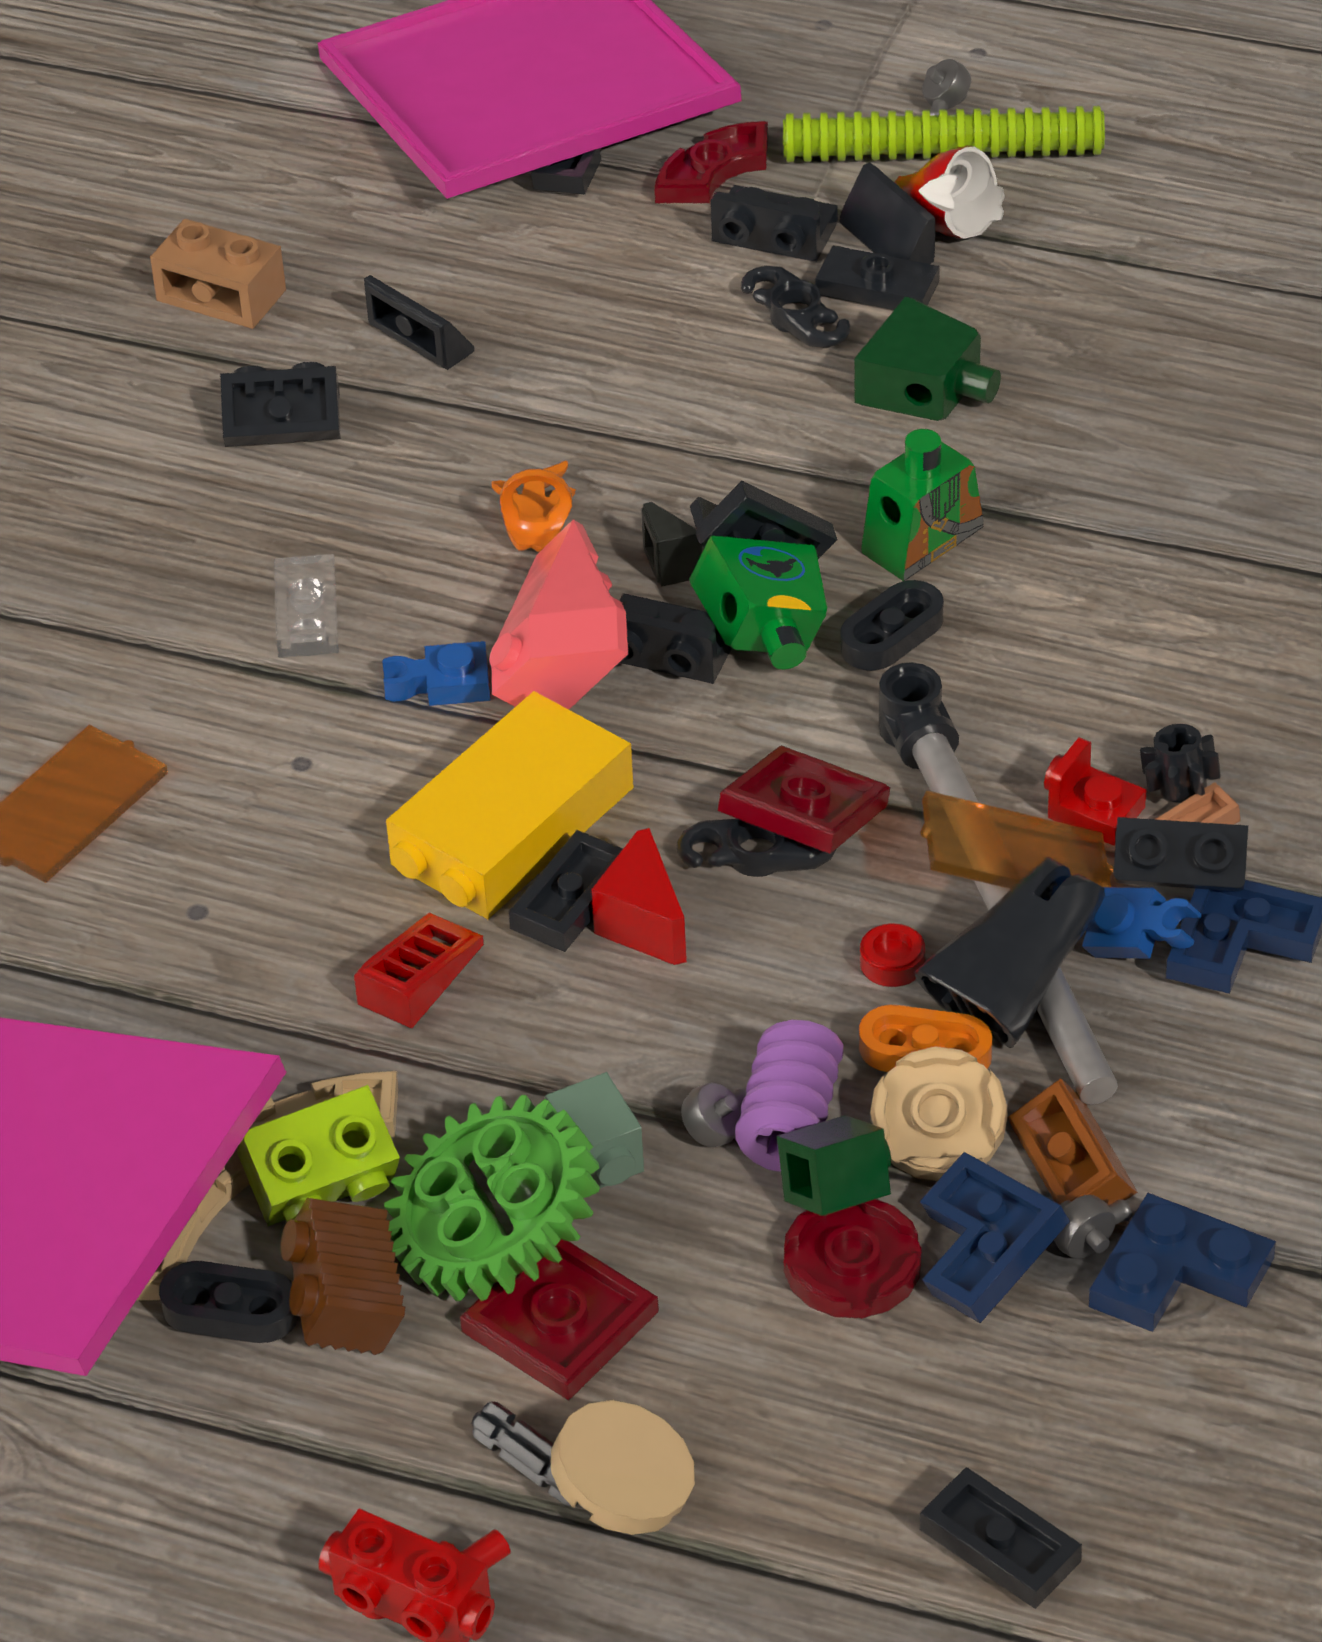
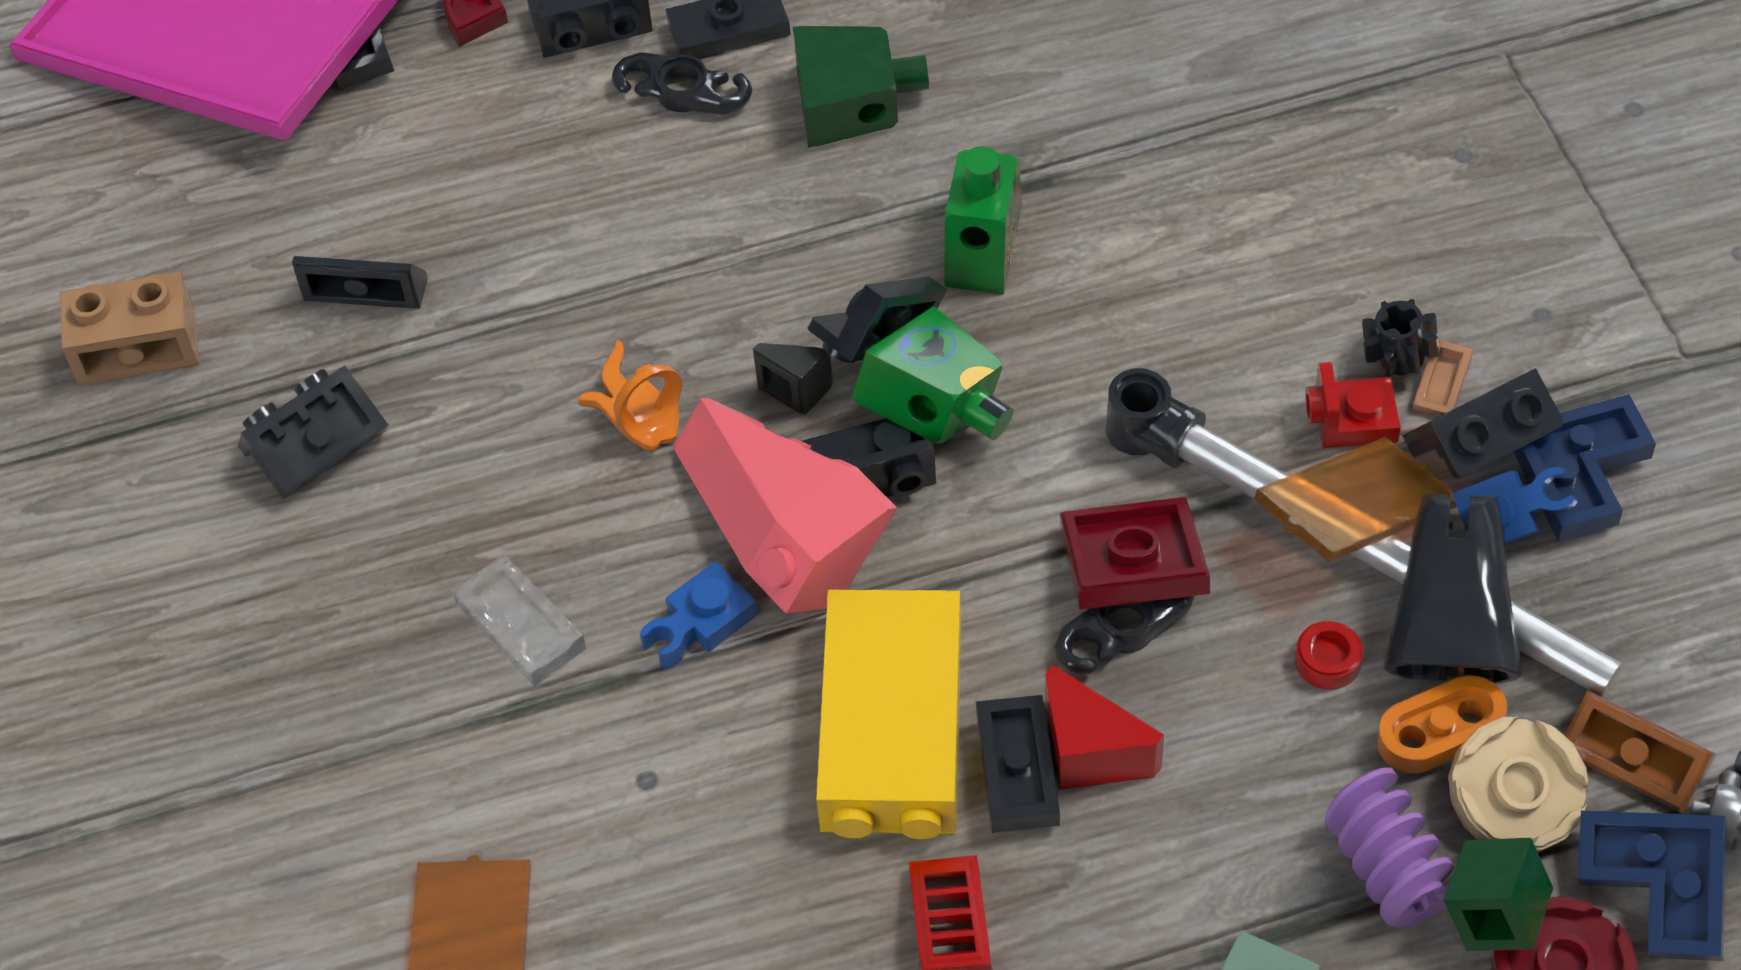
camera: 35 degrees left, 10 degrees up
(712, 1113) = (1339, 904): flat silver piece -> none
(892, 625) = (1047, 347): black plate -> none

